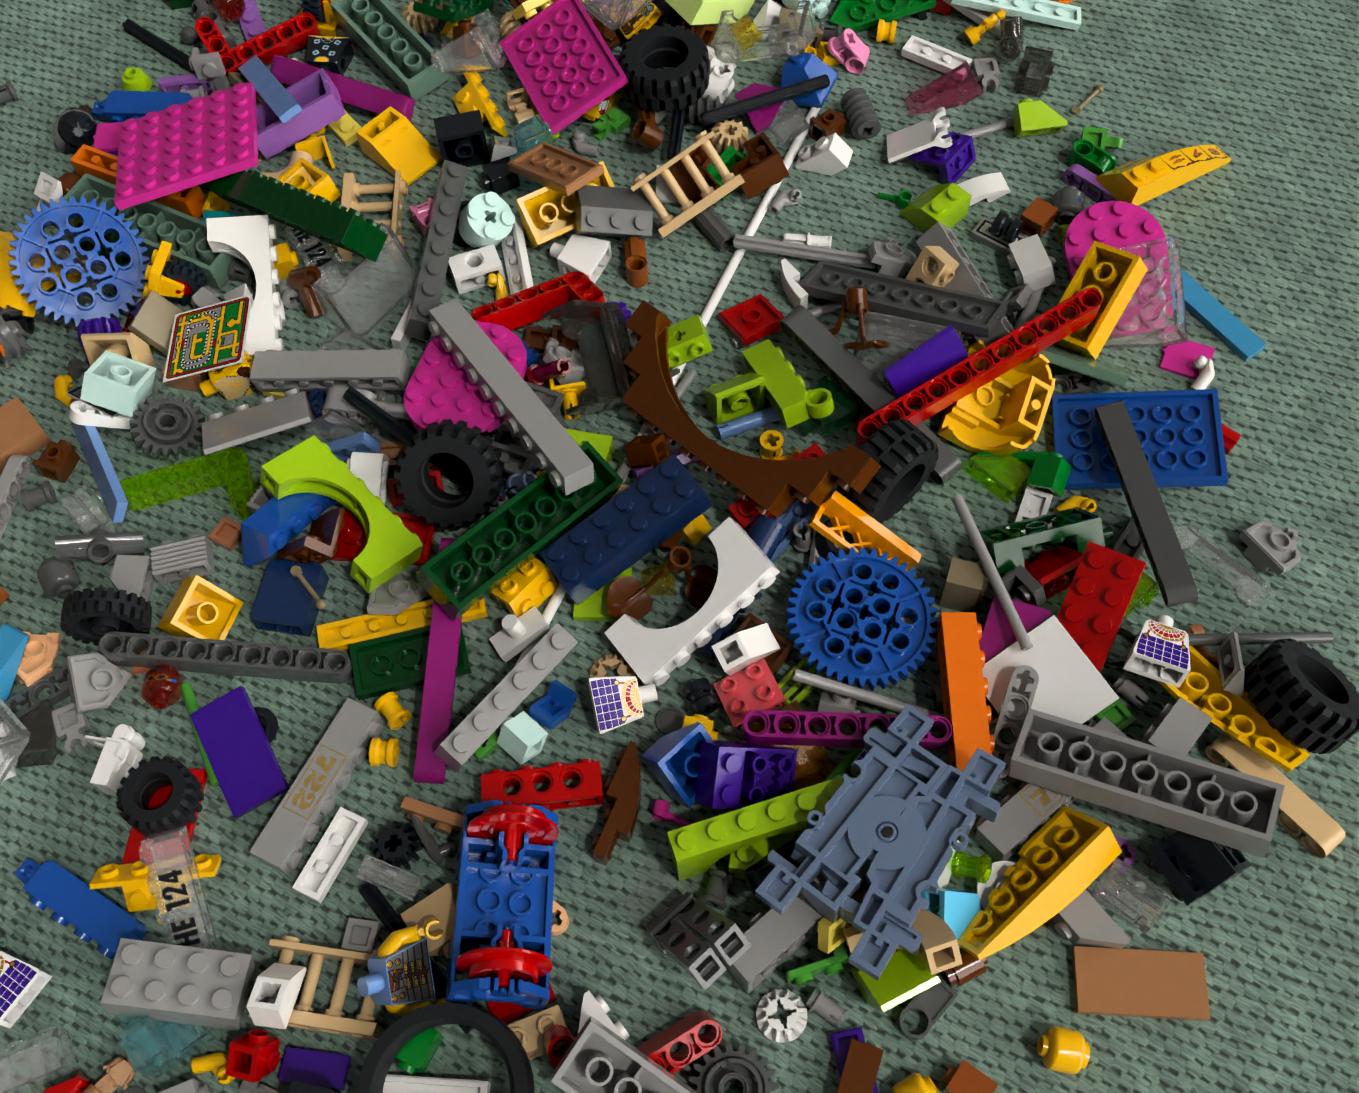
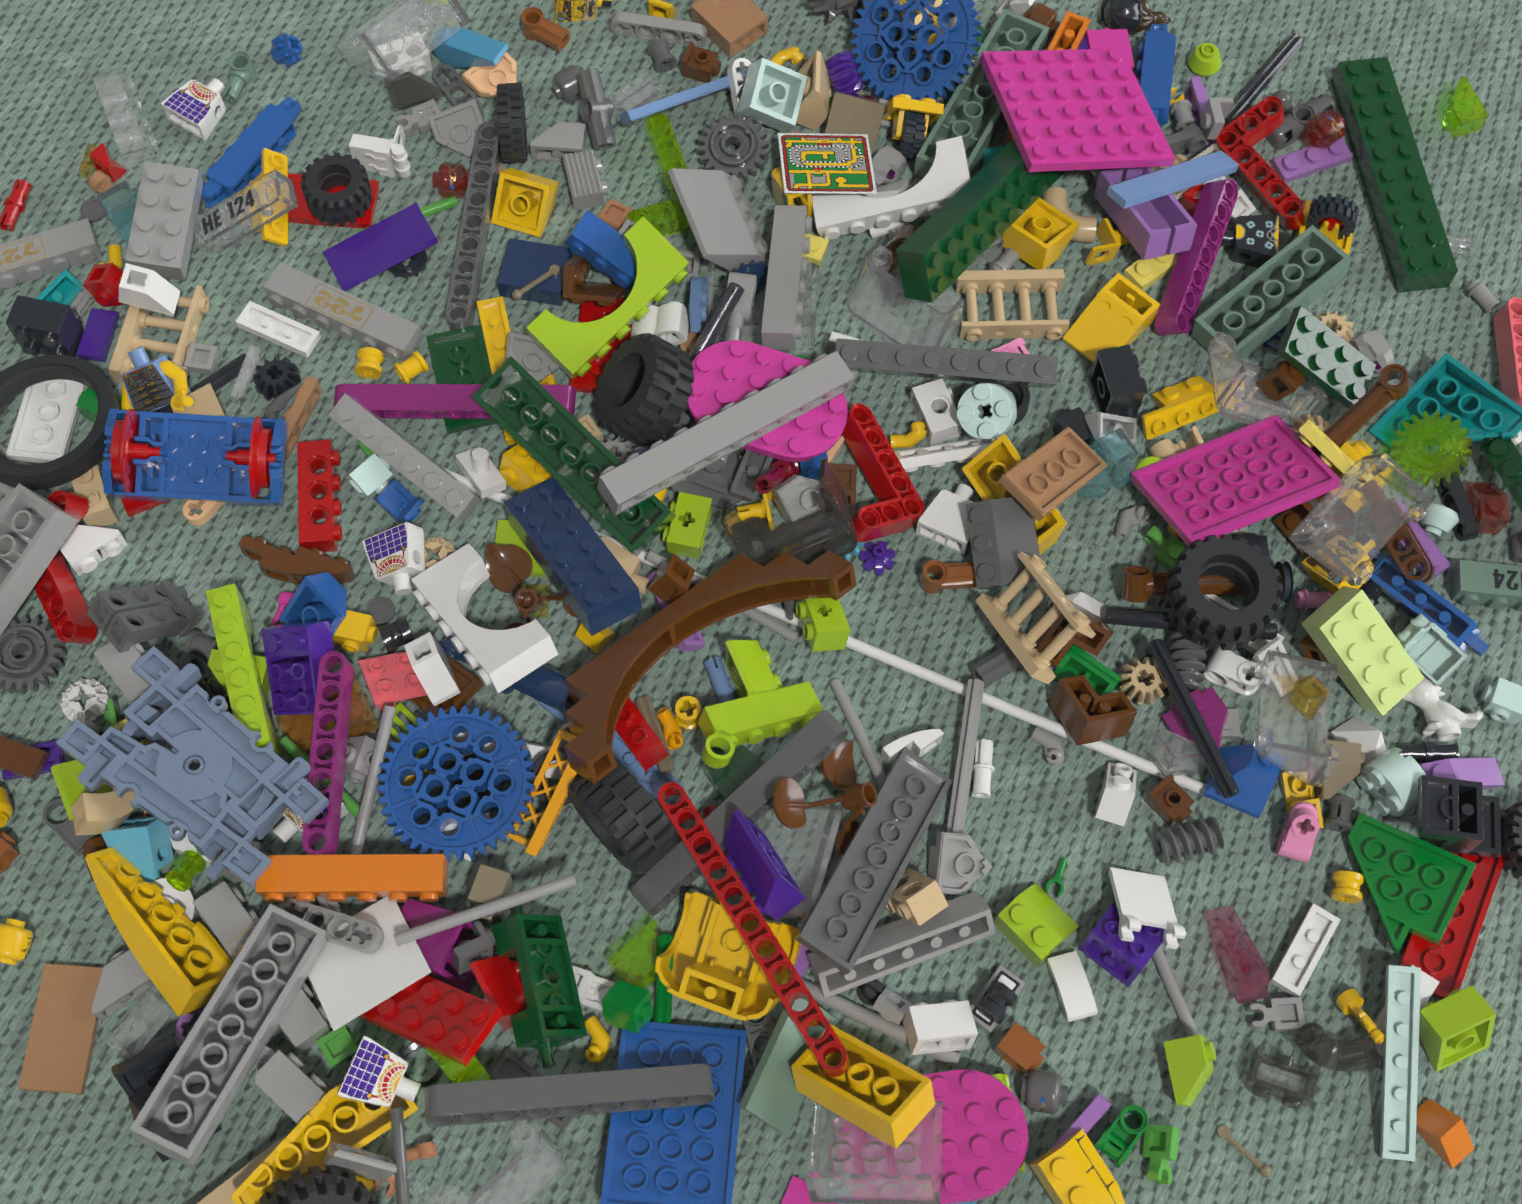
camera: 85 degrees right, 5 degrees up
(751, 319) = (864, 700): red tile -> none

